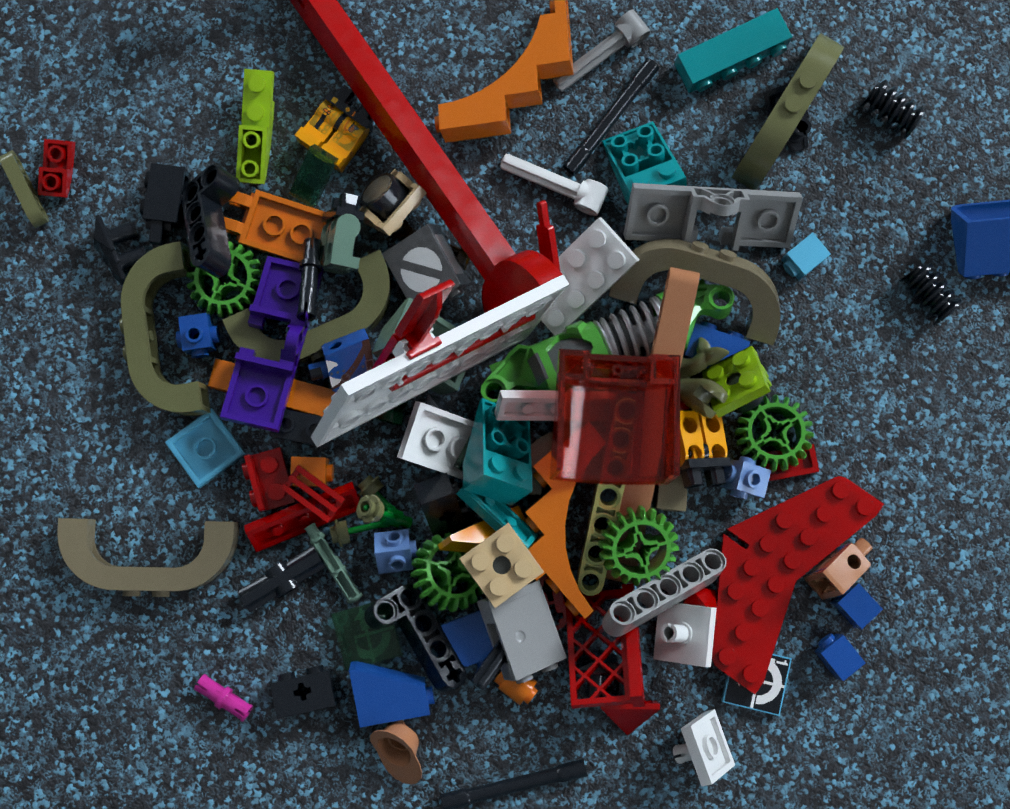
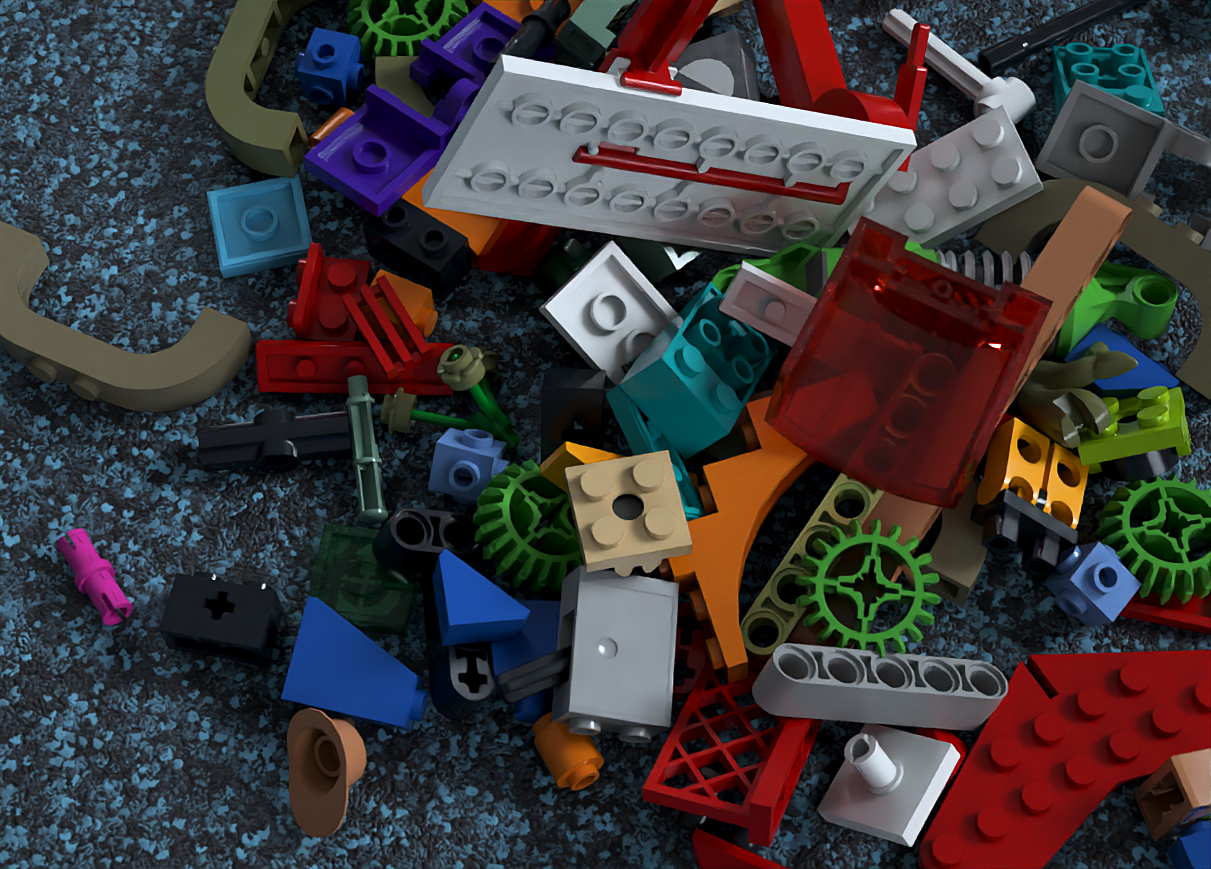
camera: 30 degrees right, 20 degrees down
(437, 642) = (472, 606): none -> blue slope

